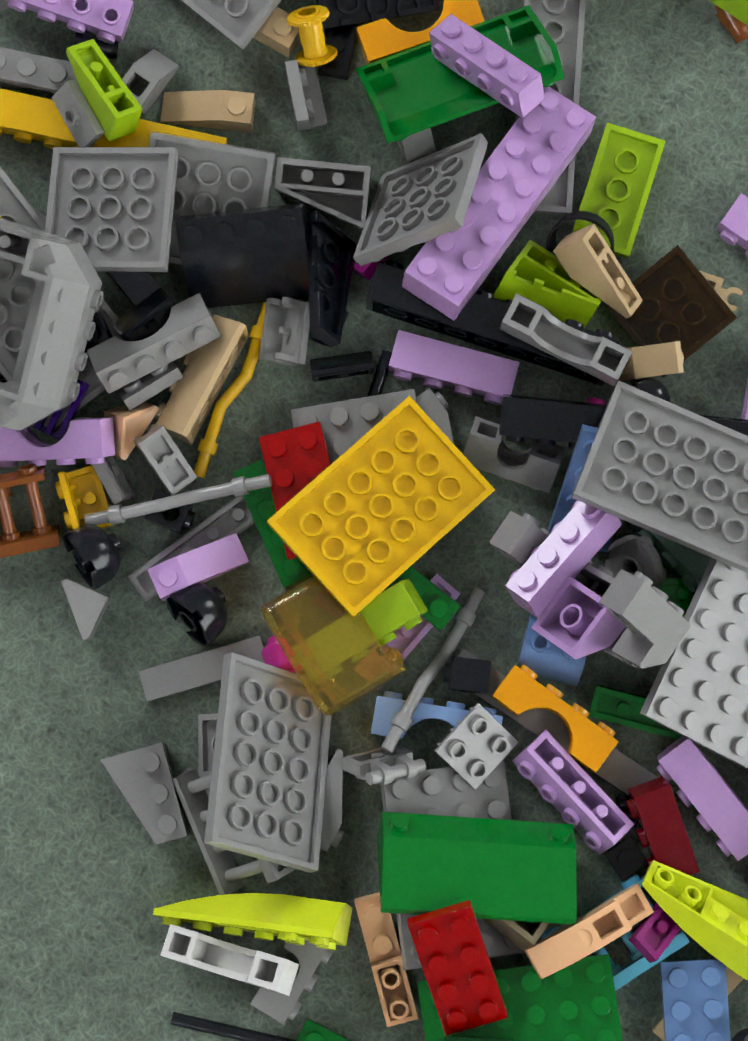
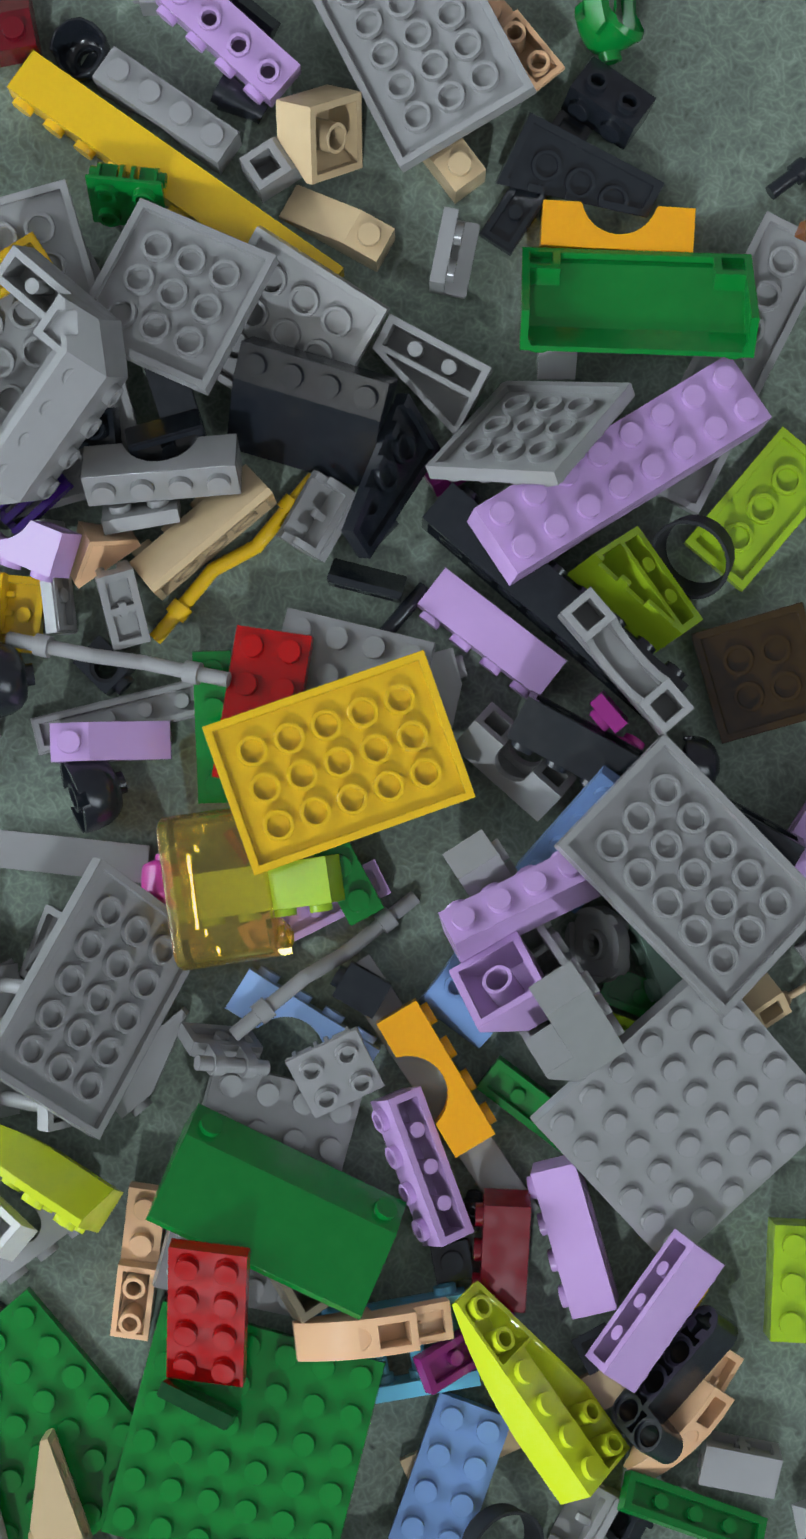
camera: 30 degrees right, 5 degrees up
(34, 156) = (115, 196): none -> green hinge
(77, 114) = (184, 171): light grey plate -> none
(104, 90) = (223, 155): lime slope -> none
(168, 44) = (322, 131): none -> tan slope
(312, 36) = (488, 187): yellow hose -> none
(487, 65) = (671, 307): lavender brick -> none
(567, 386) = (607, 713): none -> magenta plate
(595, 267) = (697, 589): tan slope -> none
(653, 361) = (718, 722): tan slope -> none

